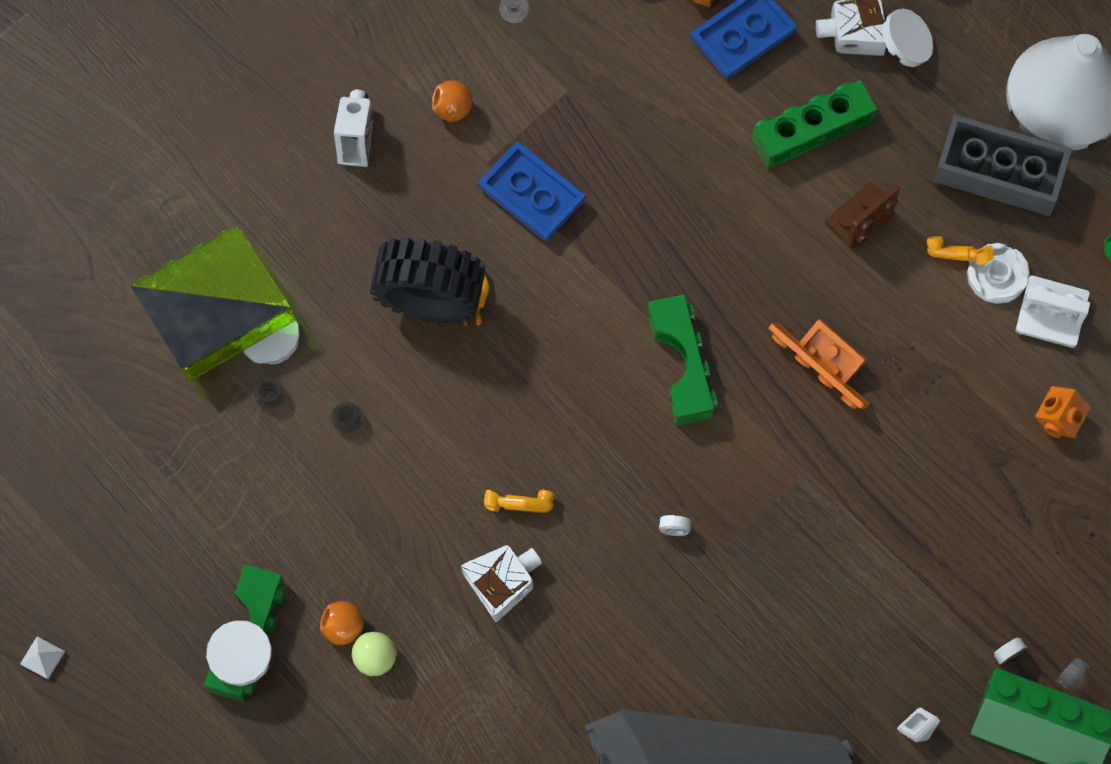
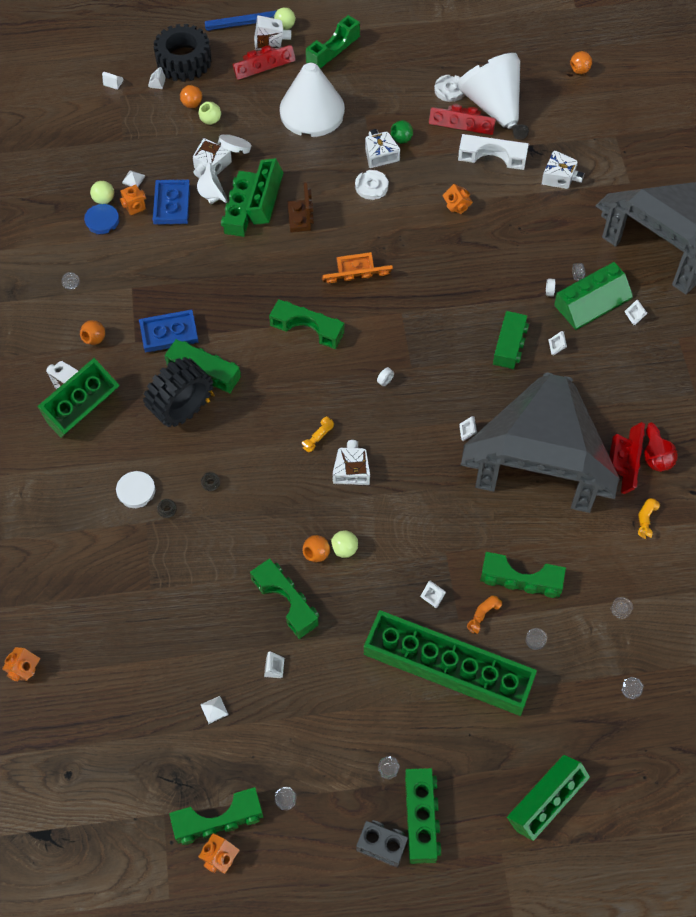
camera: 55 degrees left, 10 degrees down
(147, 688) = (274, 665): none -> white slope
(213, 303) = (97, 499): panel -> none
(239, 653) = (295, 602): white tile -> none
(334, 163) = (77, 397): none -> green slope
(509, 276) = (224, 374): none -> green brick
(677, 695) = (468, 428): none -> white slope
(809, 64) = (210, 186): none -> white hat
(856, 140) = (264, 191): none -> green brick
(870, 655) = (510, 340): none -> green brick
(962, 253) = (341, 198): light orange arm -> none
(1002, 165) = (325, 148): dark grey brick -> none
(1052, 311) = (408, 175): white bracket -> none
(1069, 238) = (381, 149): none -> torso

